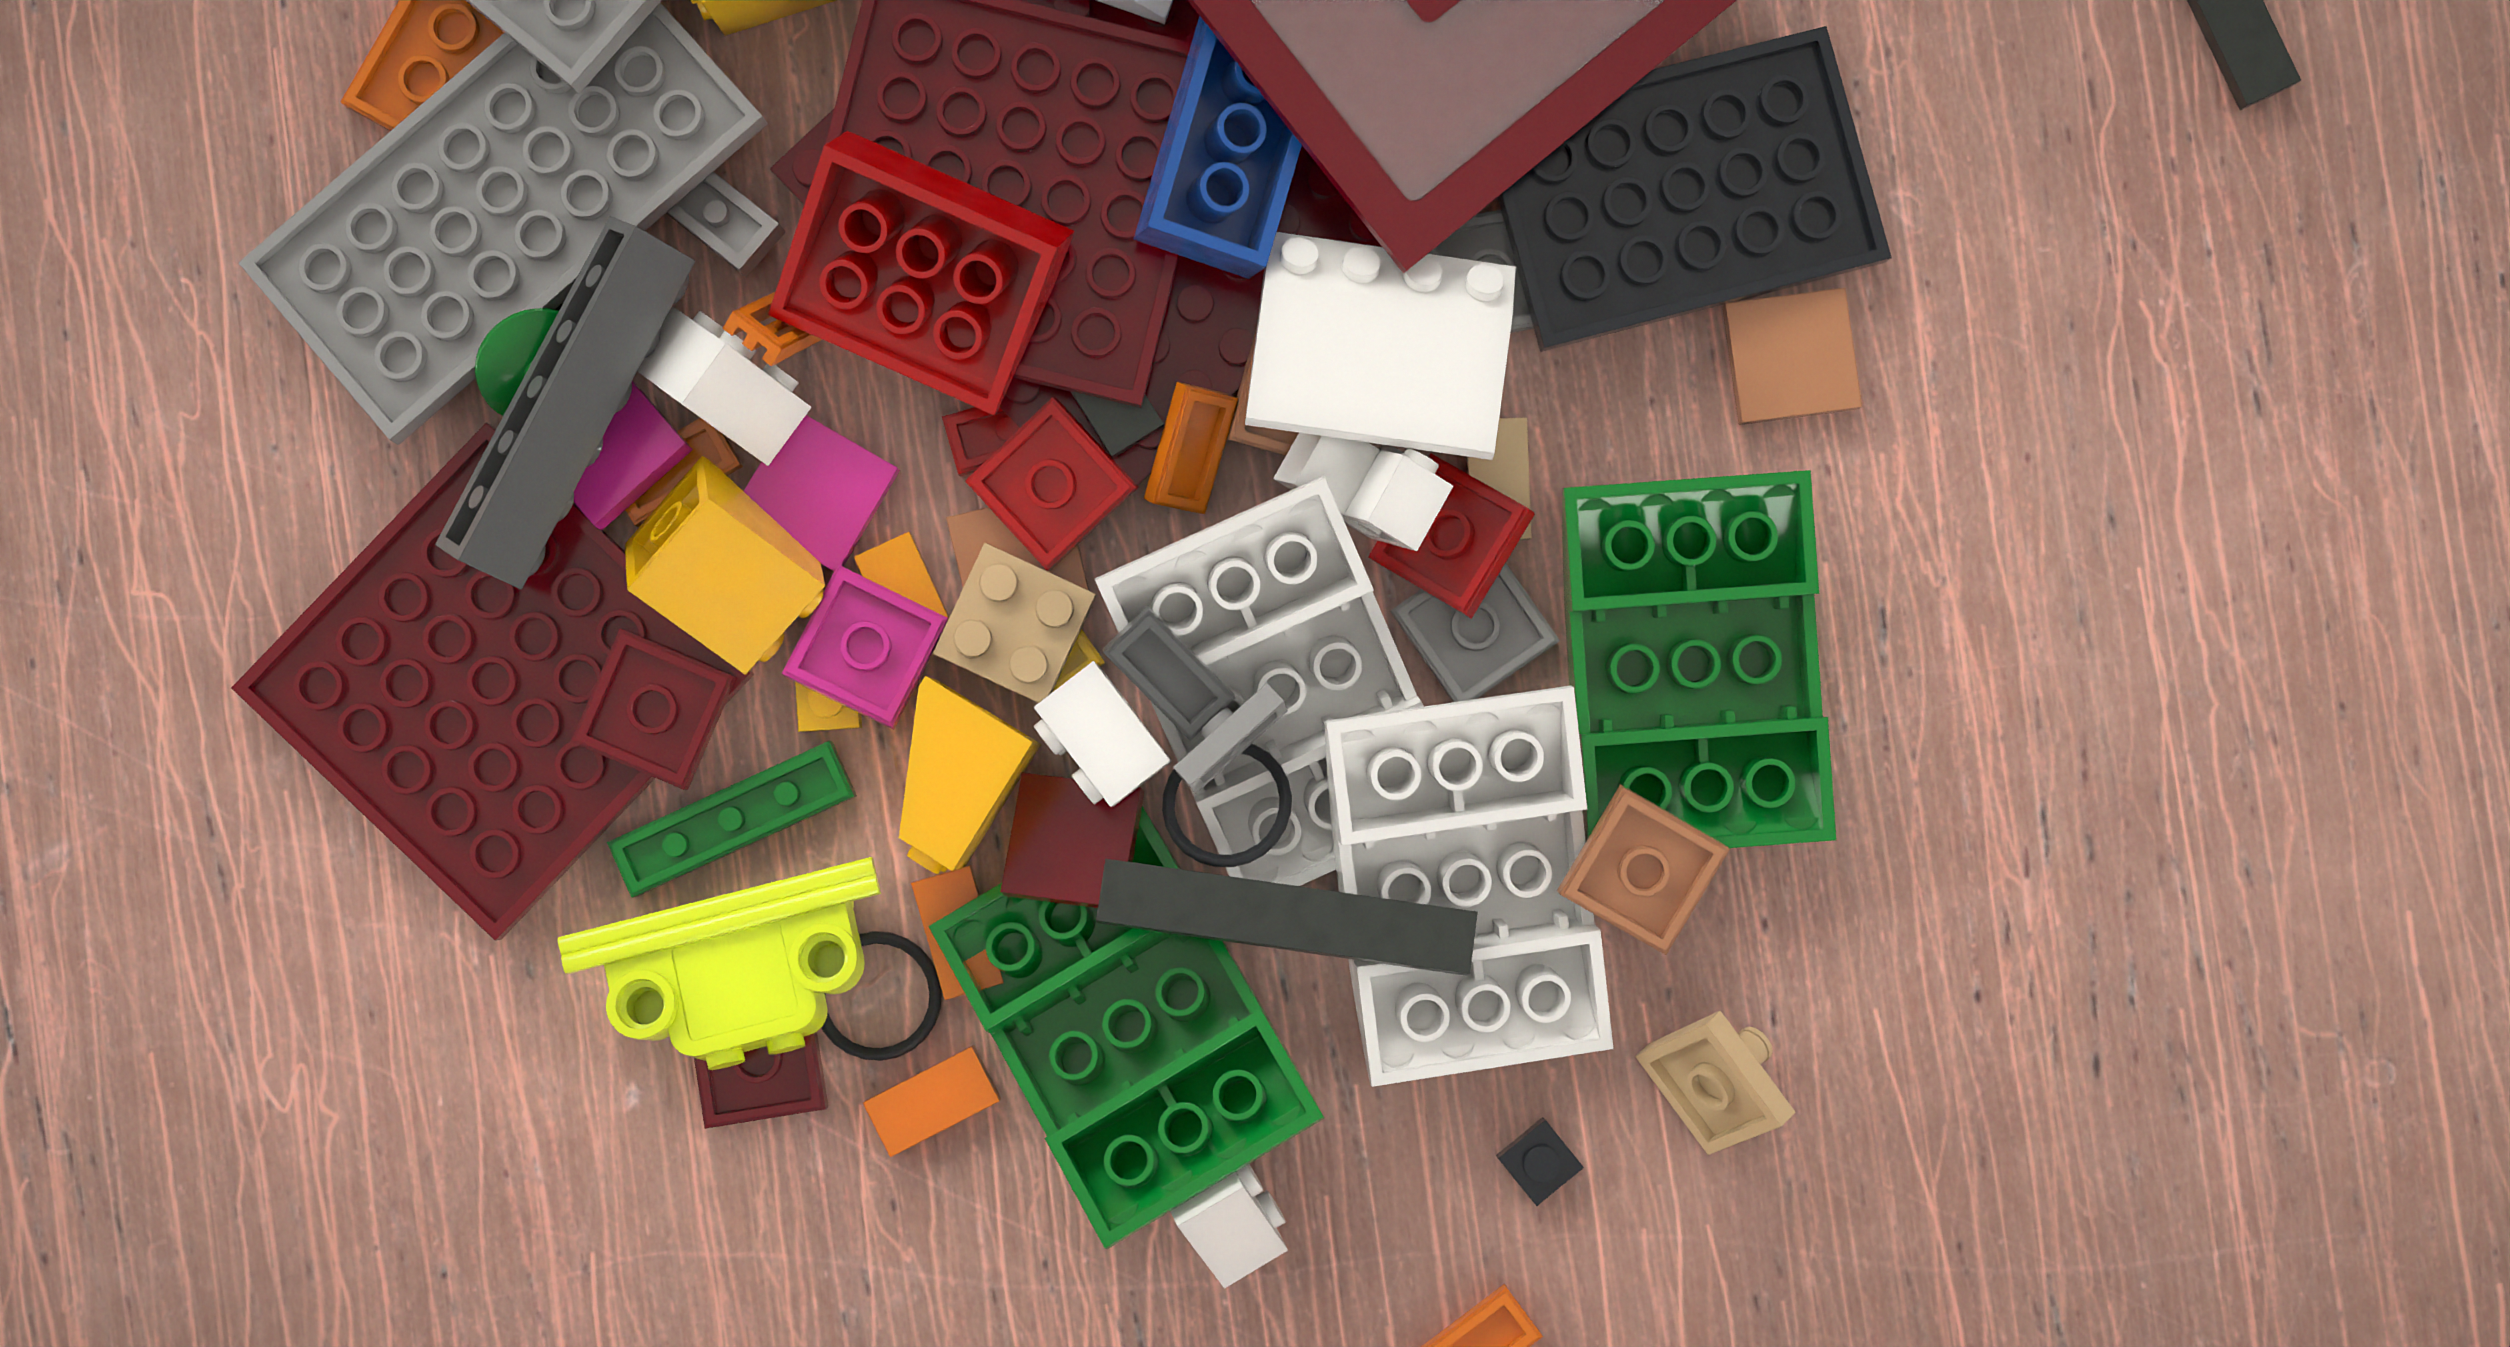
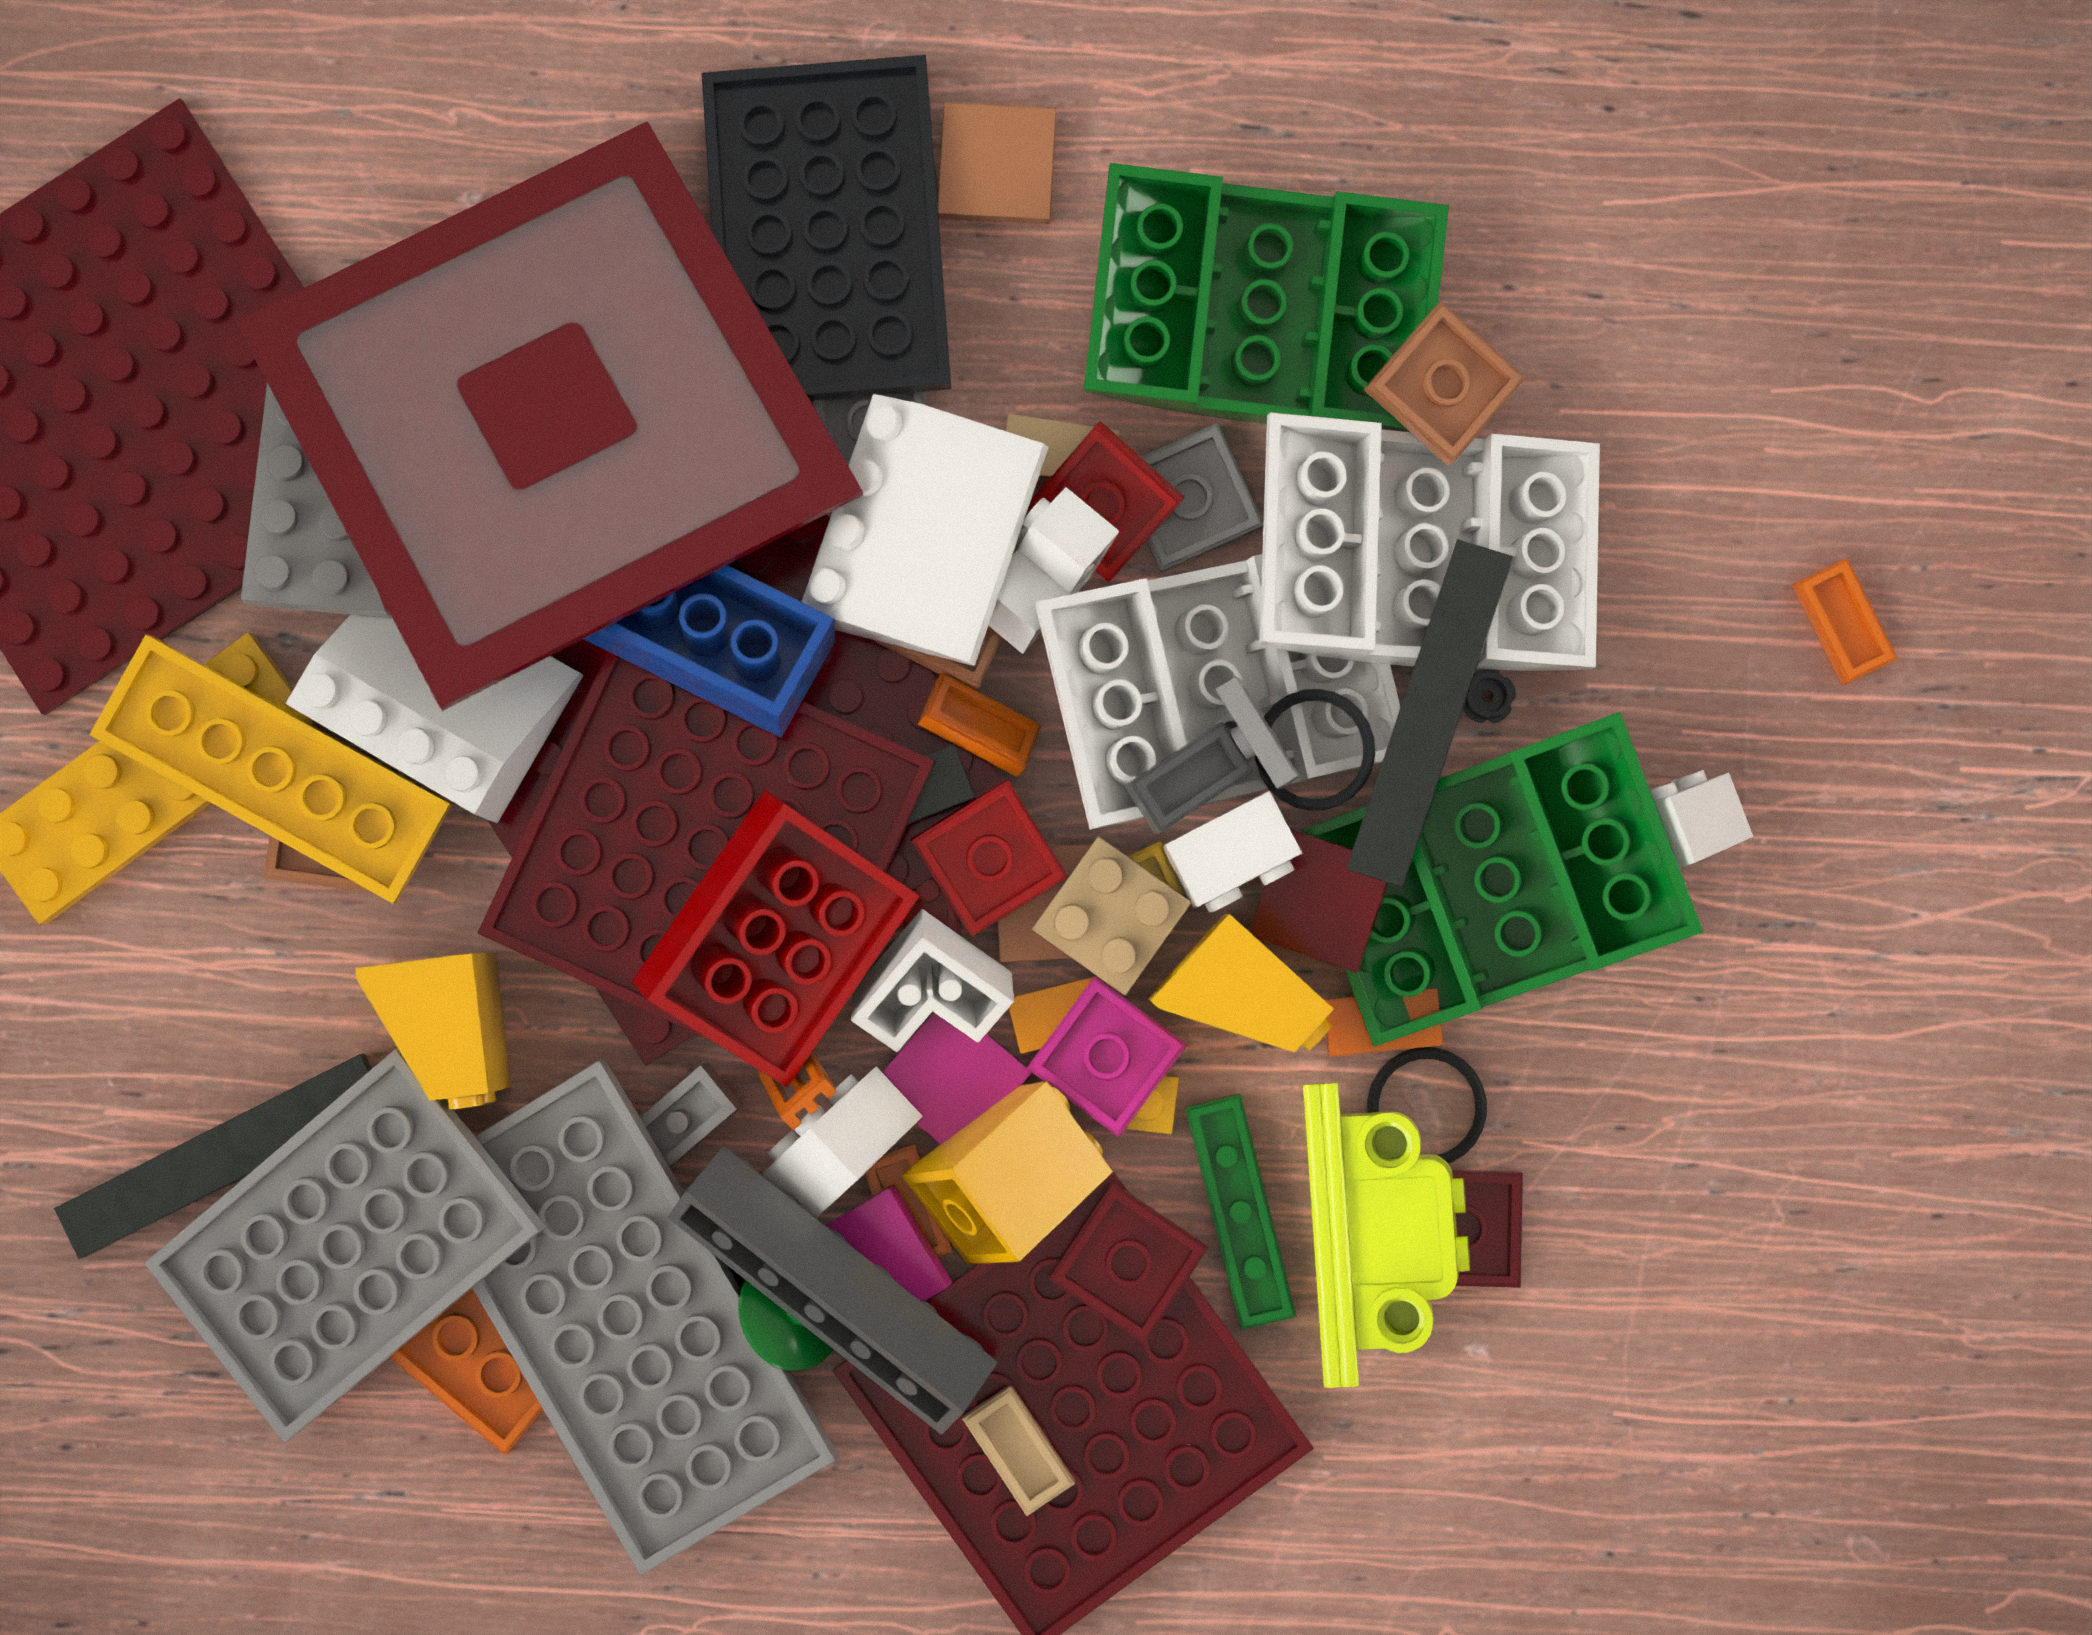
camera: 65 degrees left, 0 degrees up
(437, 631) = (1018, 1449): none -> tan tile
(917, 445) = (930, 972): none -> white brick
(931, 1101) = (1532, 1074): orange tile -> none
(1314, 994) = (1502, 696): none -> black plate
(1539, 1161) = (1687, 531): black plate -> none
(1717, 1081) = (1647, 354): tan tile -> none

